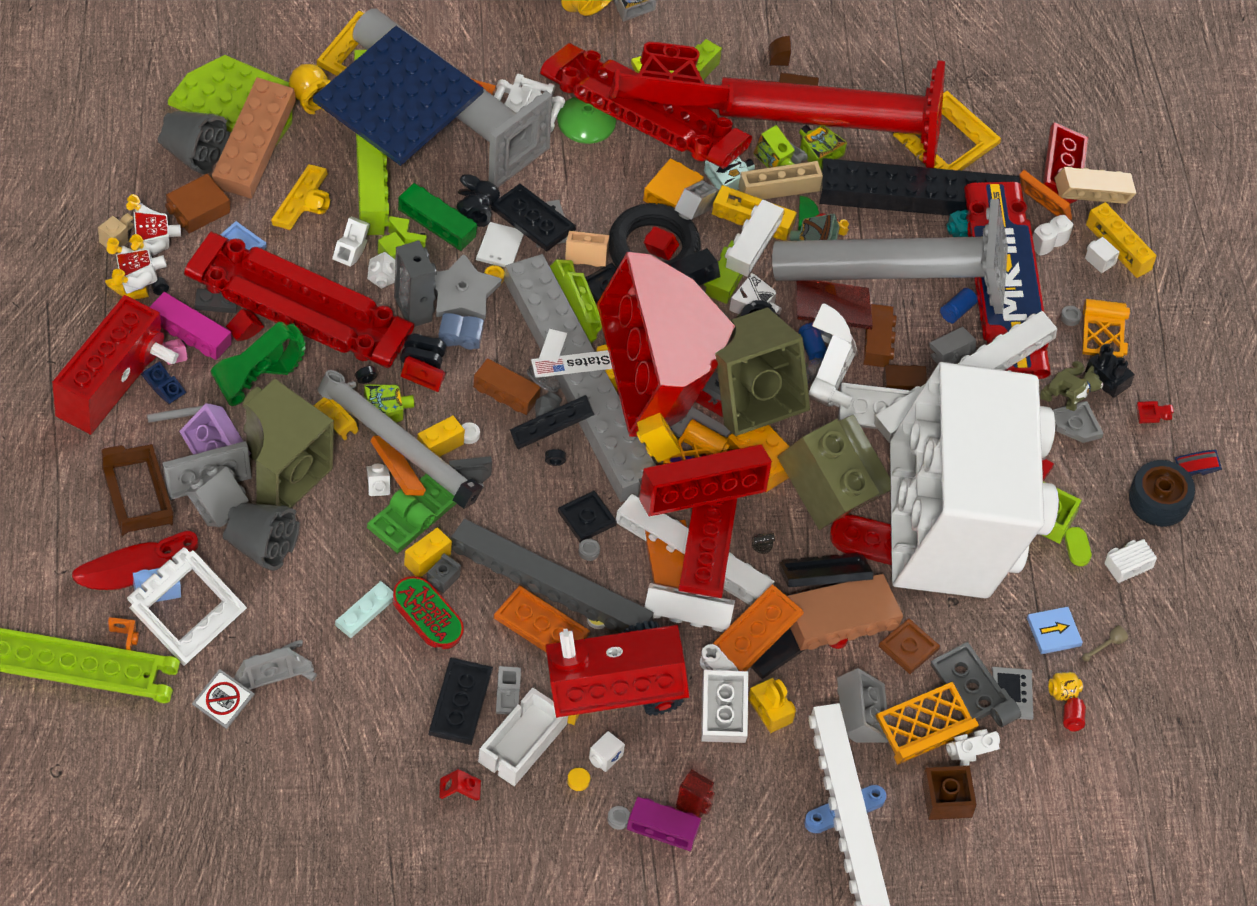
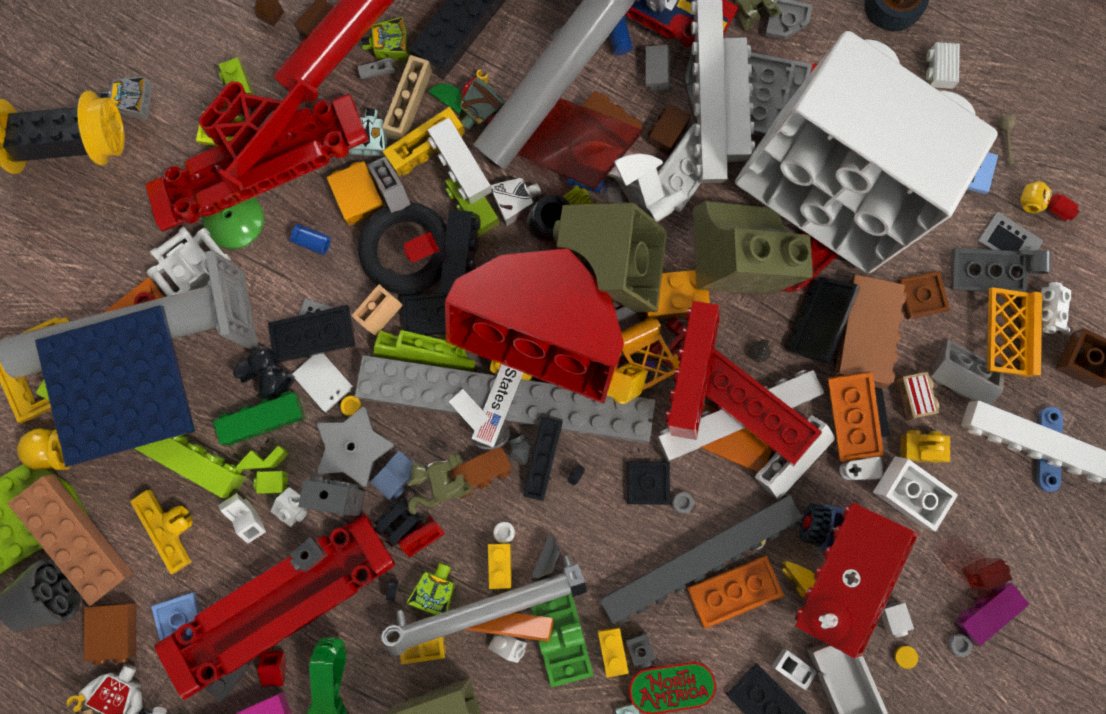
camera: 45 degrees left, 25 degrees up
(356, 294) = (315, 552): none -> dark grey brick
(481, 356) = (440, 480): none -> olive animal
(610, 176) = (310, 239): none -> blue piece
(774, 148) = (374, 82): lime torso -> none
(813, 678) = (917, 396): none -> brick

